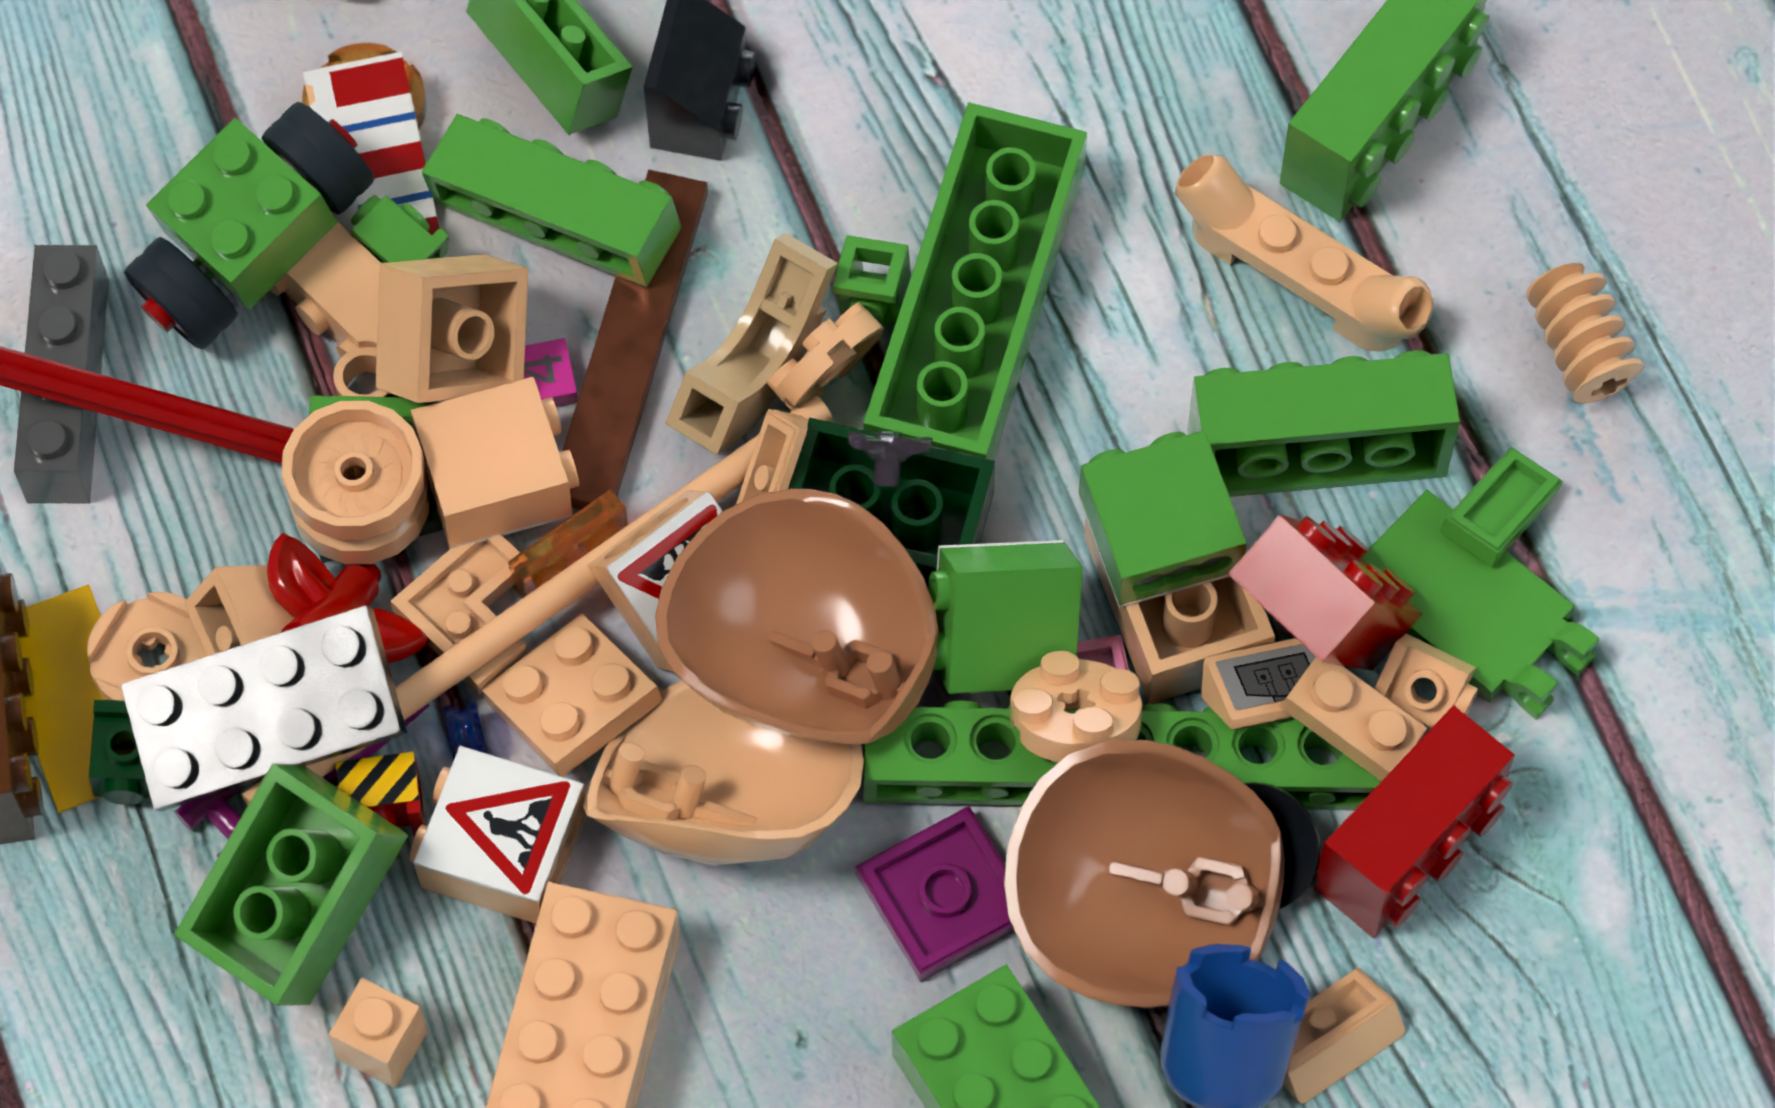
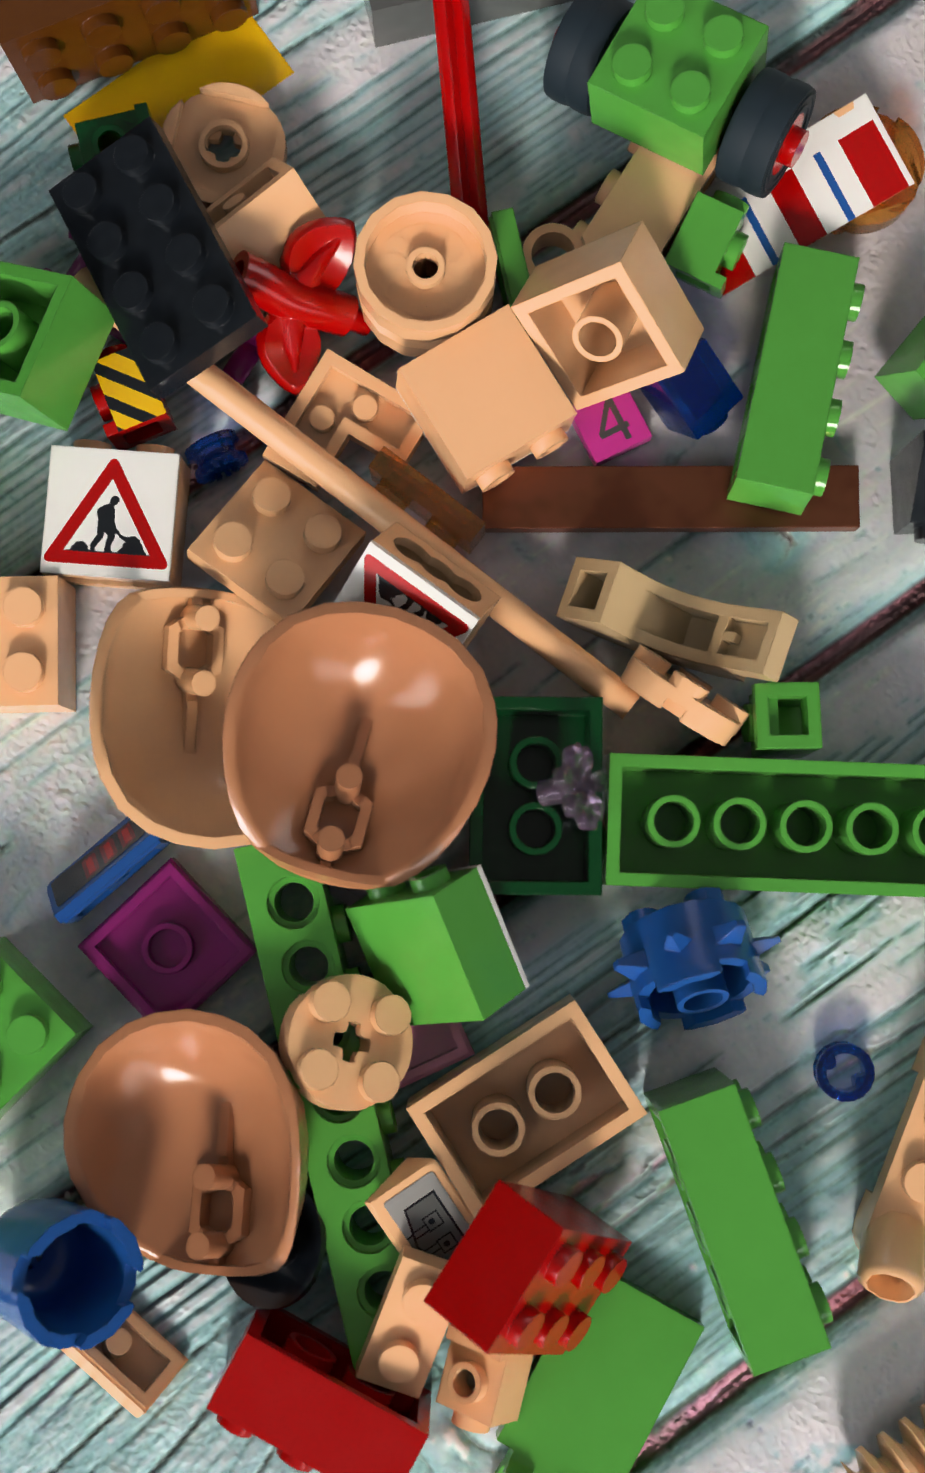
camera: 75 degrees right, 20 degrees up
(551, 286) = (696, 399): none -> clear blue brick
(774, 454) = (544, 673): light nougat slope -> none
(846, 929) = (102, 870): none -> slope
(1075, 400) = (691, 961): none -> blue brick
(1161, 517) = (567, 1086): bright green piece -> none
(1231, 308) = (860, 1081): none -> clear blue bush
(1501, 506) = (702, 1408): bright green tile -> none

